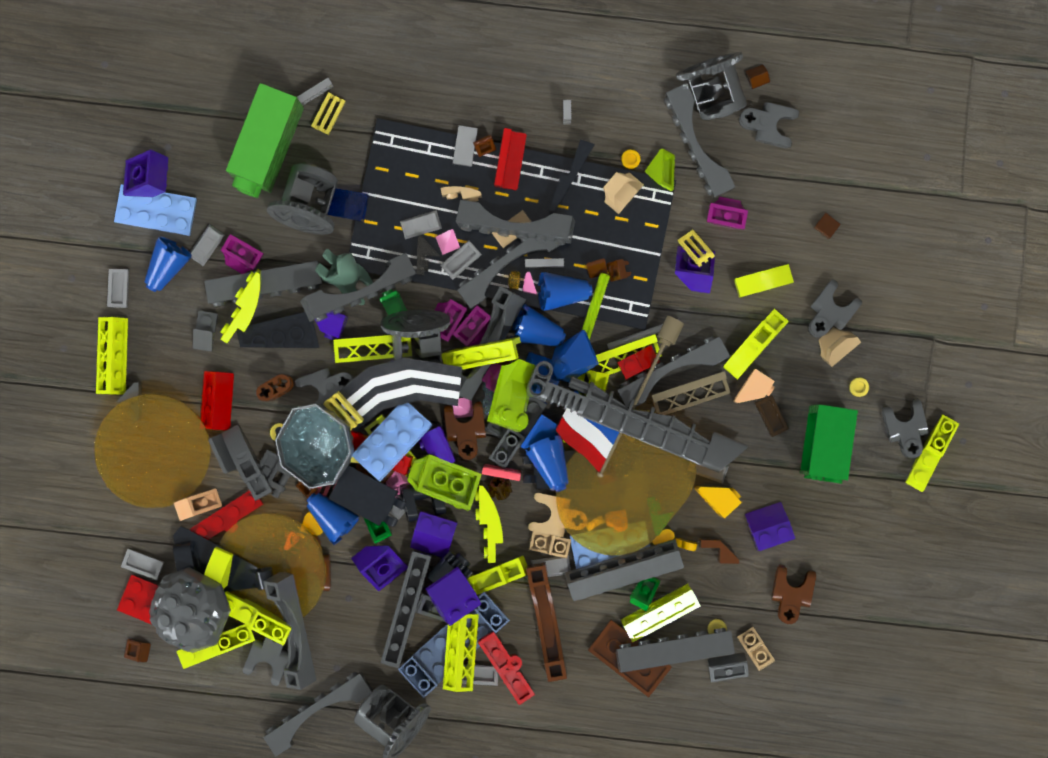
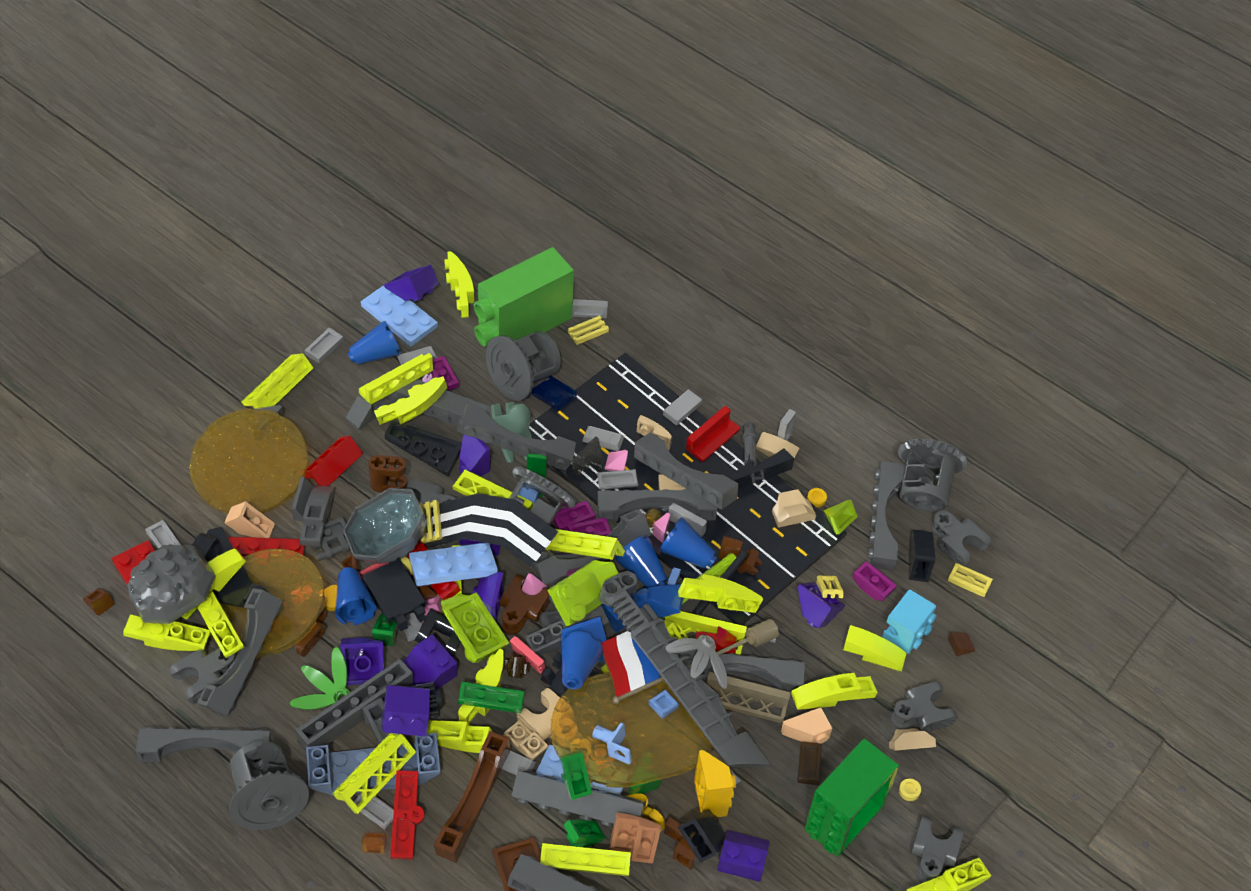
camera: 25 degrees right, 35 degrees down
(180, 138) = (460, 282): none -> neon yellow slope
(212, 291) = (397, 378): none -> neon yellow fence
(375, 603) = (332, 690): none -> bright green plant
(484, 145) = (699, 413): reddish brown slope -> none
(496, 699) = (373, 843): none -> clear orange slope
(503, 534) = (491, 697): none -> green tile
(542, 142) = (749, 439): none -> dark grey pin
(568, 133) = (771, 444): none -> tan slope
(568, 326) = (674, 577): none -> medium blue tile
(608, 305) = (726, 575): none -> black bar
(617, 565) = (575, 775): none -> green slope
(619, 318) = (720, 590): none -> neon yellow slope
(621, 513) = (613, 742): none -> light blue bracket
(637, 452) = (663, 704): none -> medium blue tile
(640, 385) = (706, 651): none -> light grey plant
(689, 571) = (635, 836): none -> nougat slope
(734, 537) = (703, 835): none -> black torso
(750, 163) = (921, 555): none -> black slope
(758, 76) = (969, 502): reddish brown slope -> none
(779, 241) = (910, 621): none -> medium azure piece
(799, 165) = (968, 582): none -> light yellow tile

